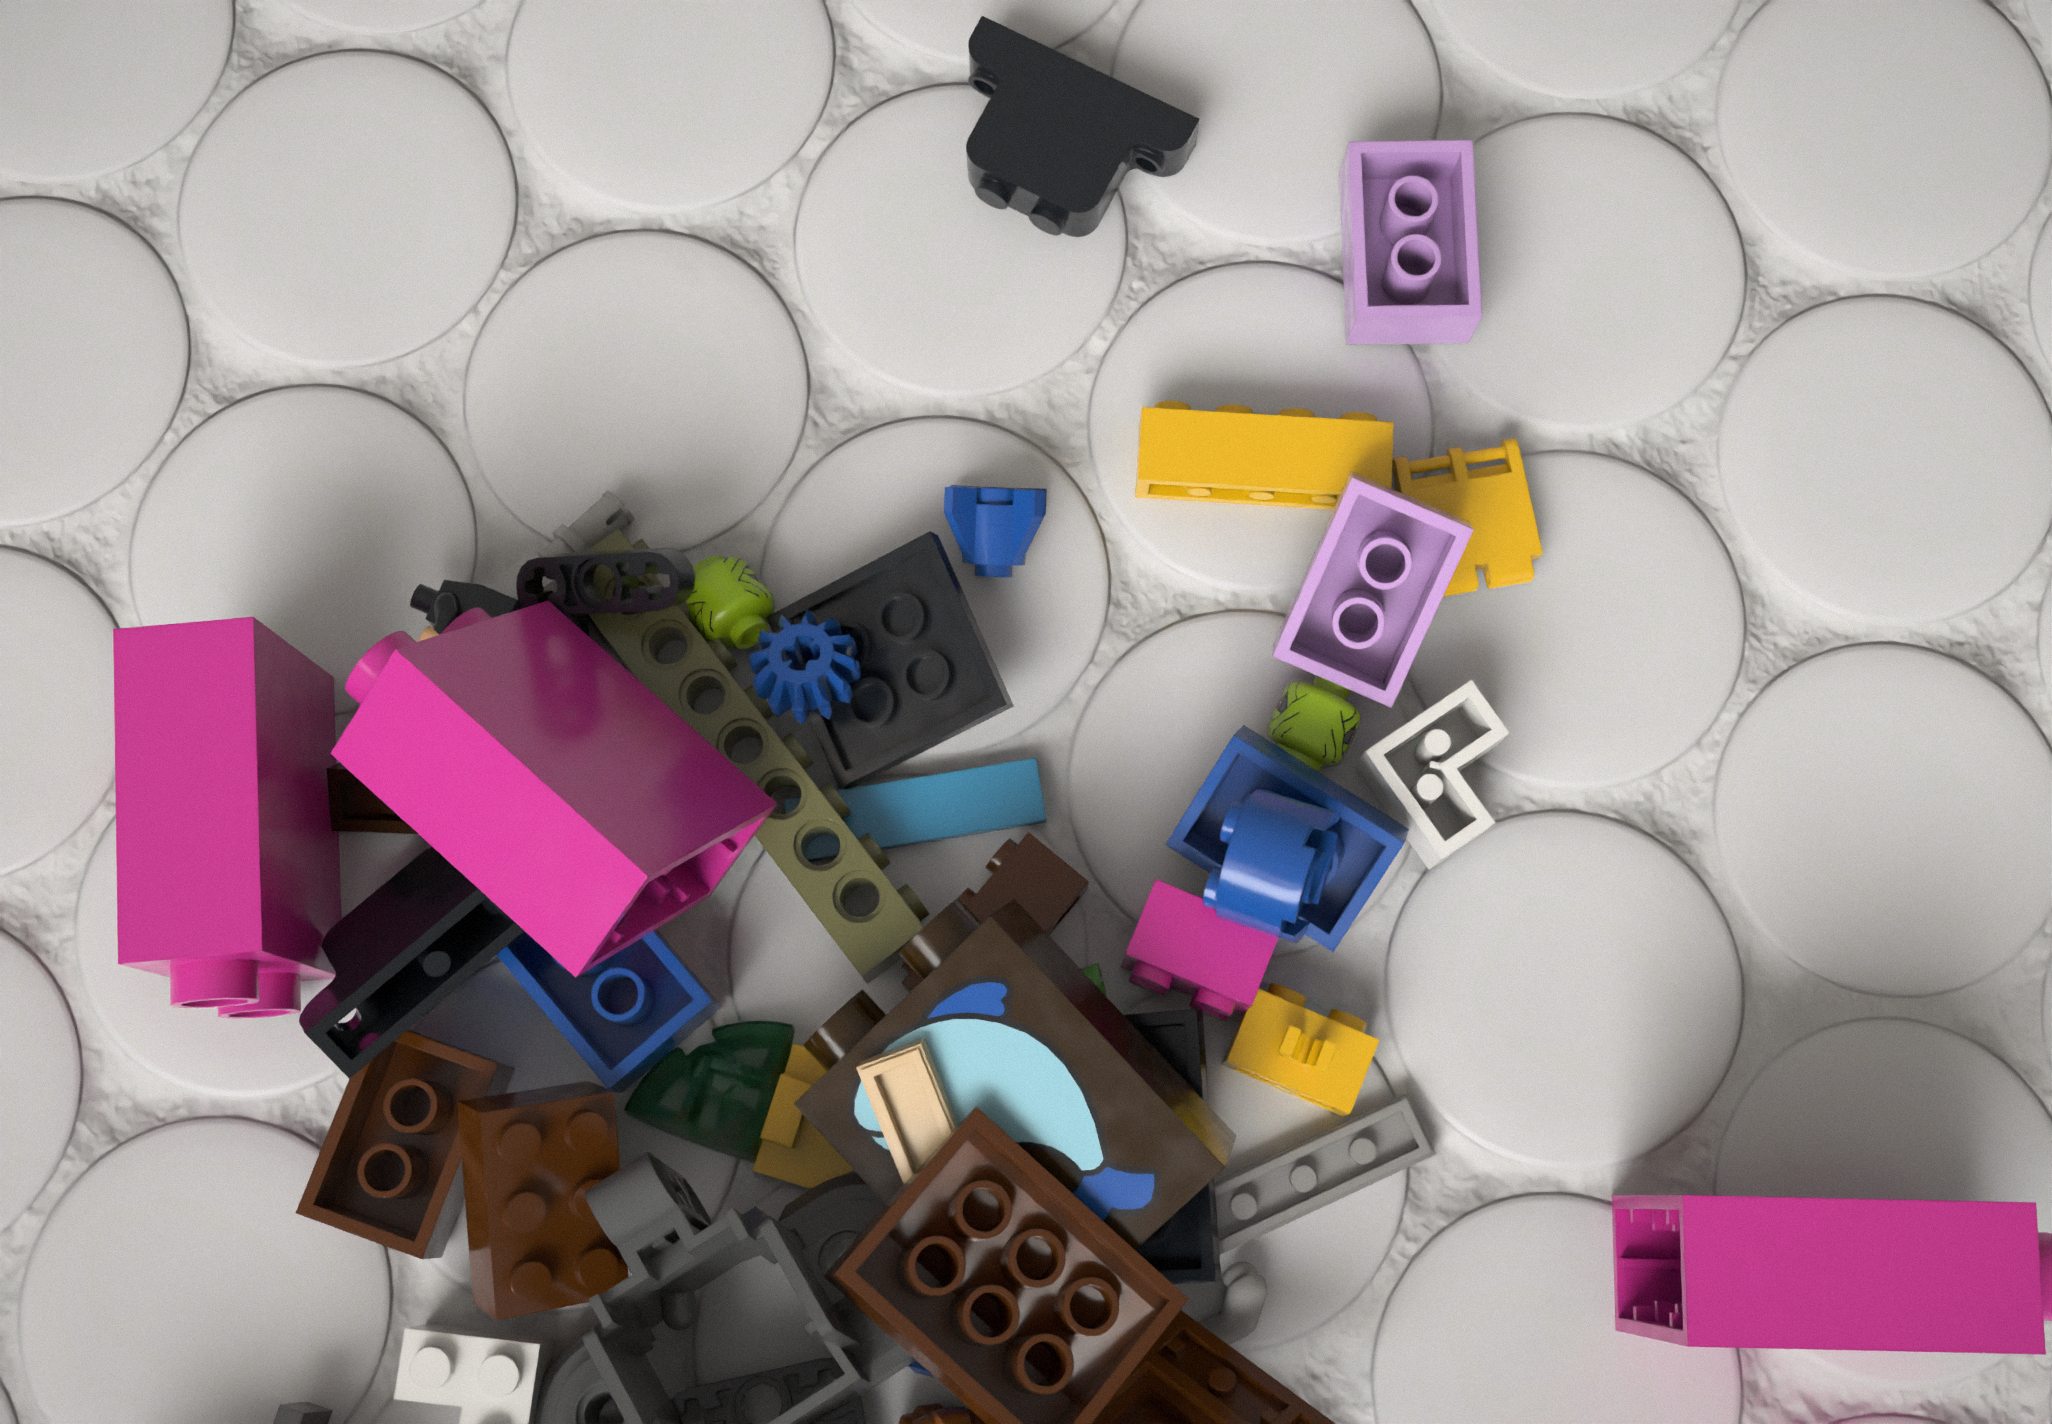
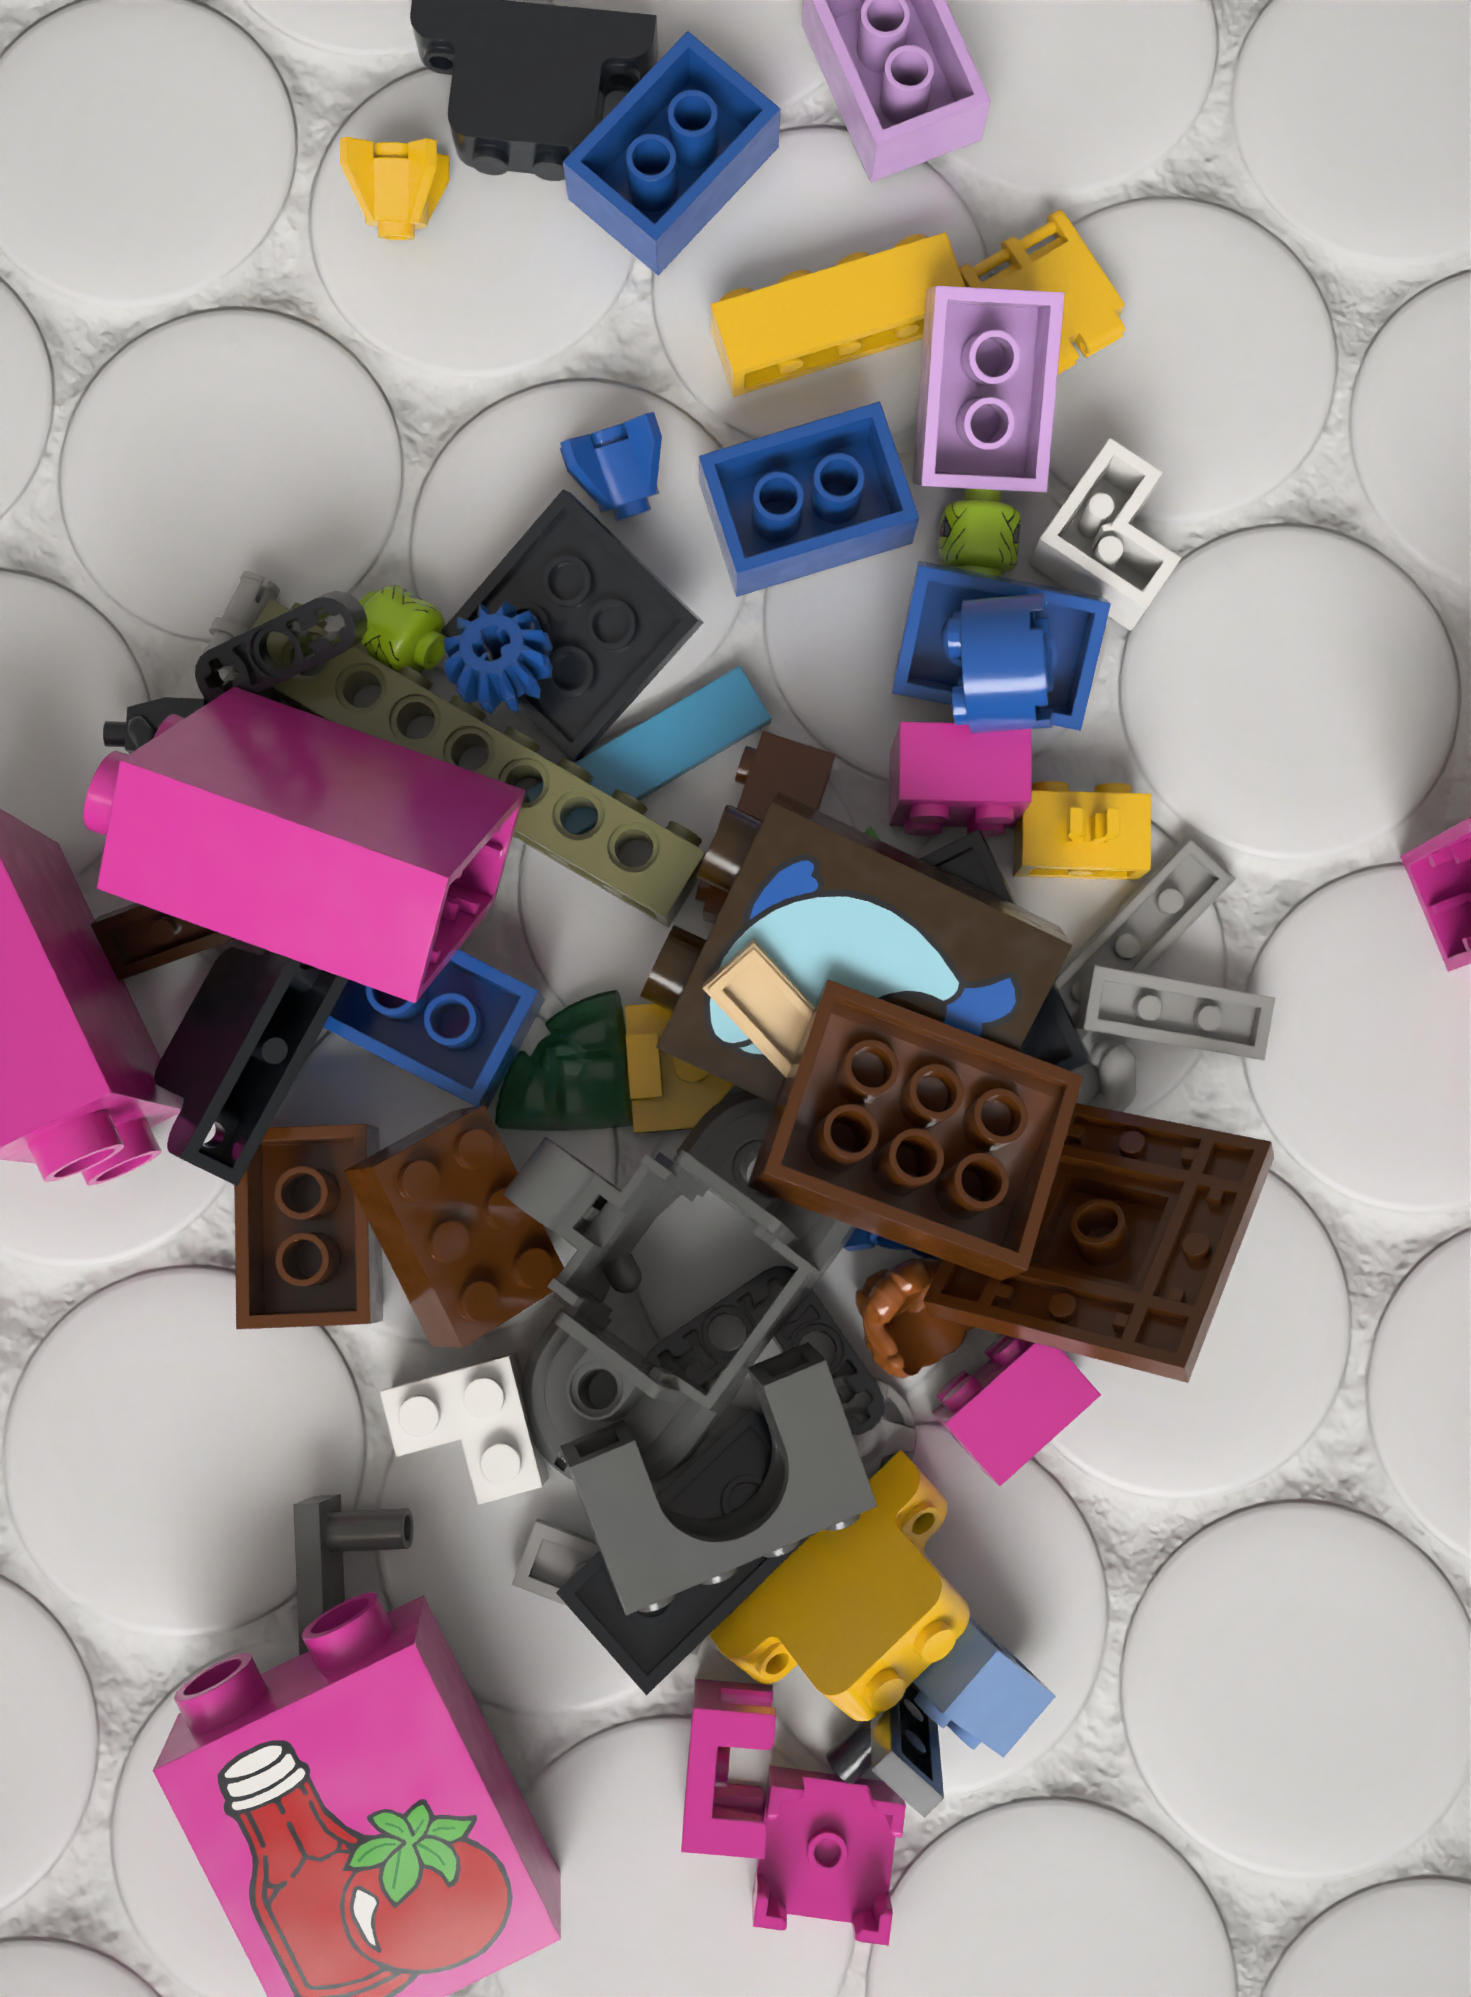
camera: 25 degrees left, 5 degrees up
(894, 184) = (395, 183): none -> yellow brick
(1162, 625) = (808, 498): none -> blue brick
(1164, 251) = (672, 153): none -> blue brick
(1322, 1265) = (1175, 1012): none -> light grey plate

